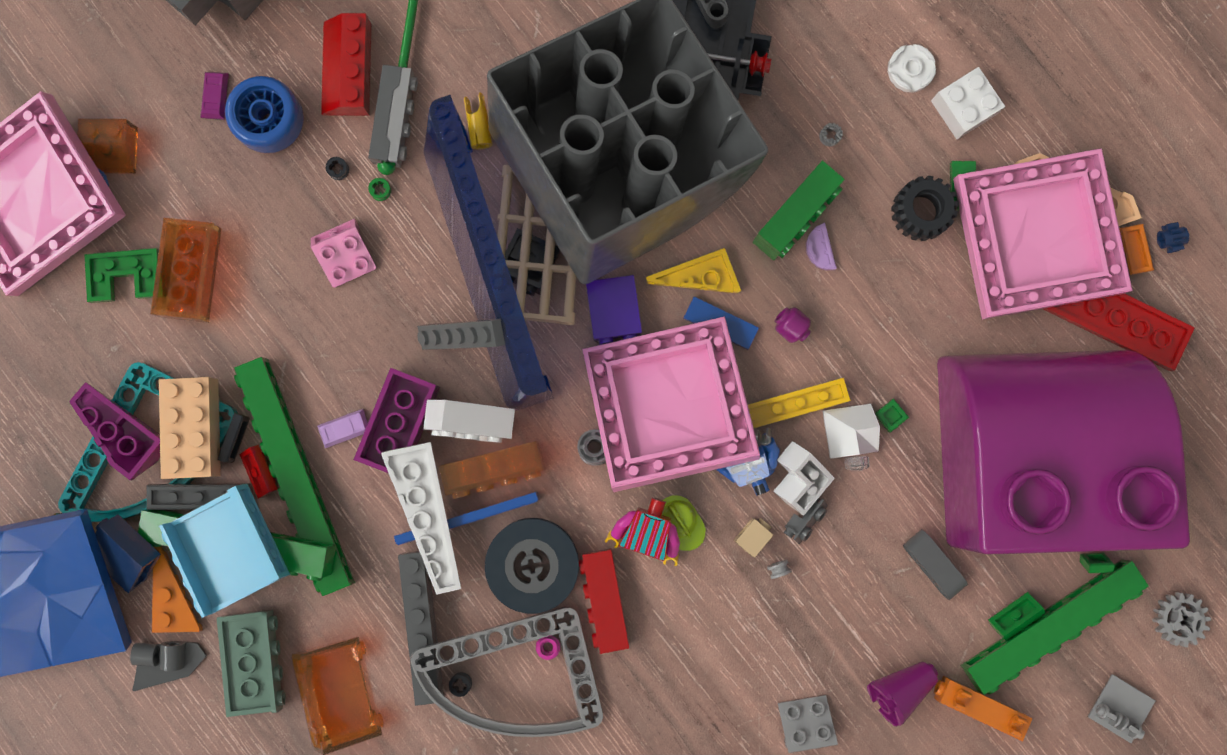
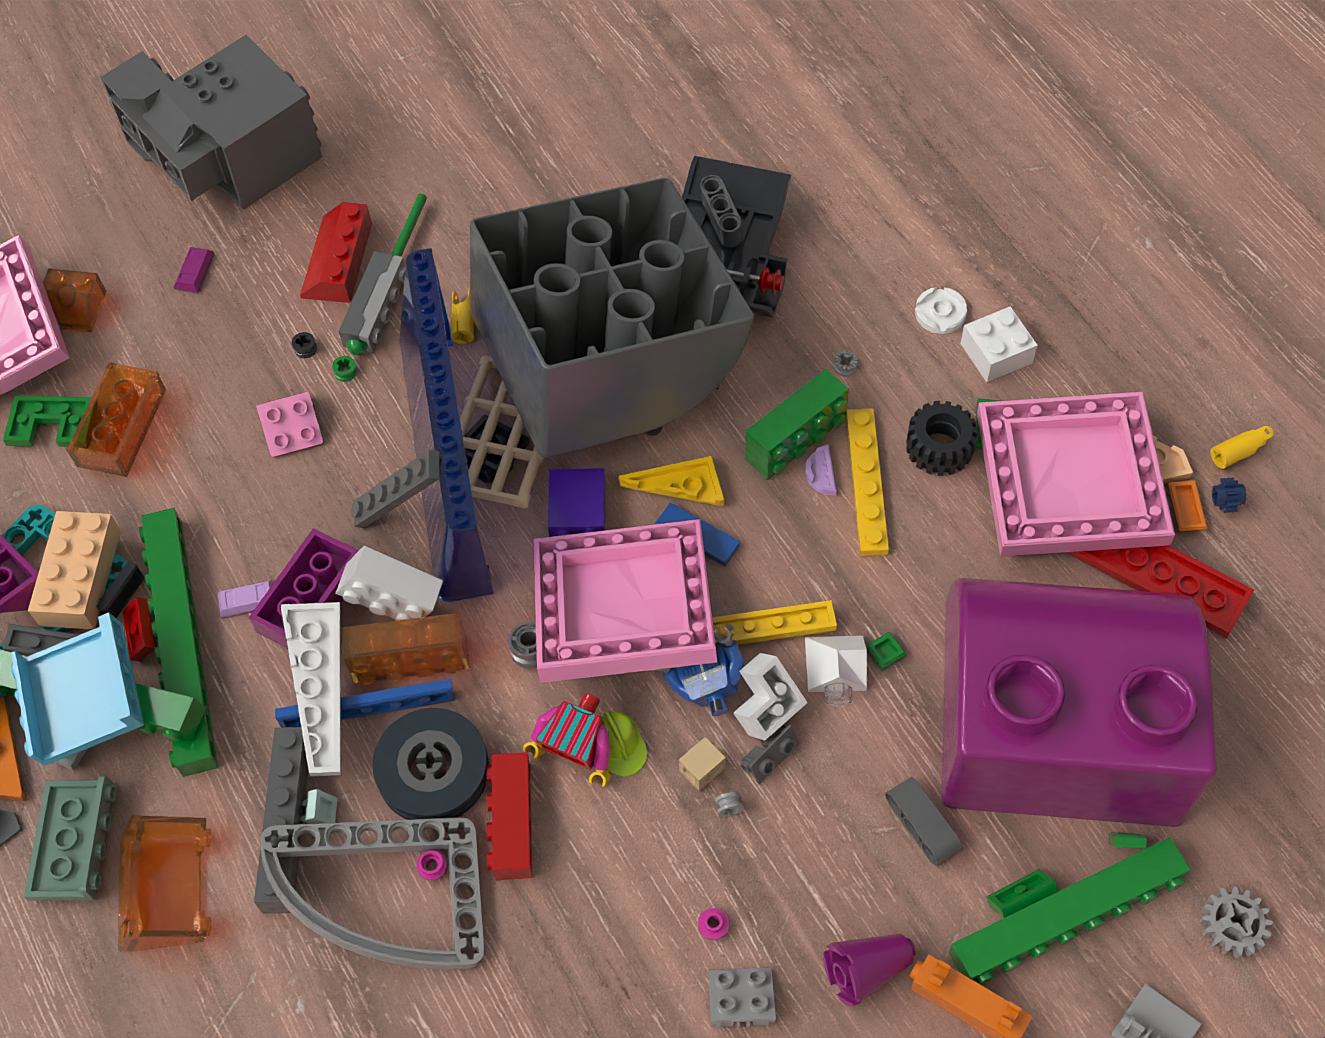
camera: 10 degrees right, 25 degrees down
(255, 99) = (240, 284): blue wheel -> none
(449, 613) = (319, 807): none -> light aqua tile
(466, 679) = (310, 889): black bush -> none
(778, 660) = (717, 932): none -> dark pink plate
(792, 325) = (779, 540): magenta head -> none
(861, 255) = (867, 482): none -> yellow plate
(1181, 187) = (1239, 447): none -> yellow piece

